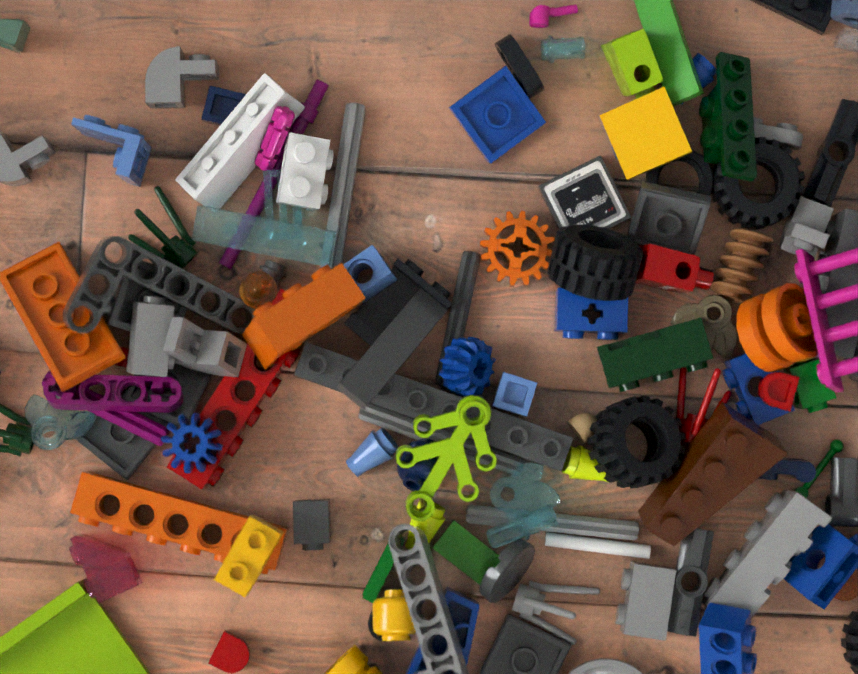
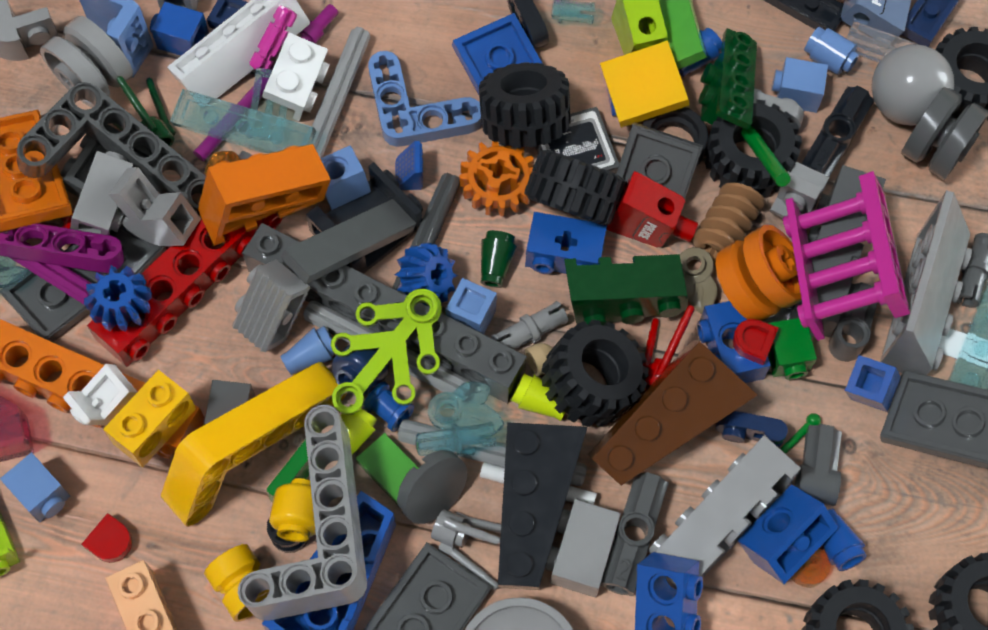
camera: 10 degrees right, 20 degrees down
(97, 194) = (86, 56): none -> light grey wheel
(157, 621) = (36, 488): none -> medium blue brick
(175, 134) = (177, 28): none -> blue brick
(199, 541) = (101, 397): none -> white bracket
(327, 421) = (269, 305): none -> light grey brick
(339, 549) = (239, 435): none -> yellow beam
(423, 193) = (412, 118): none -> medium blue beam
(429, 249) = (410, 167): none -> blue slope
(449, 496) = (383, 404): none -> blue bush
(527, 332) = (496, 257): none -> dark green cone
(528, 152) = (525, 104): none -> black tyre
(569, 398) = (532, 327): none -> light grey pin
(599, 559) = (536, 485): none -> black wedge
(775, 210) = (766, 156): none -> green bar
(796, 101) = (801, 82): none -> medium blue brick
(824, 57) = (832, 49): none -> medium blue brick

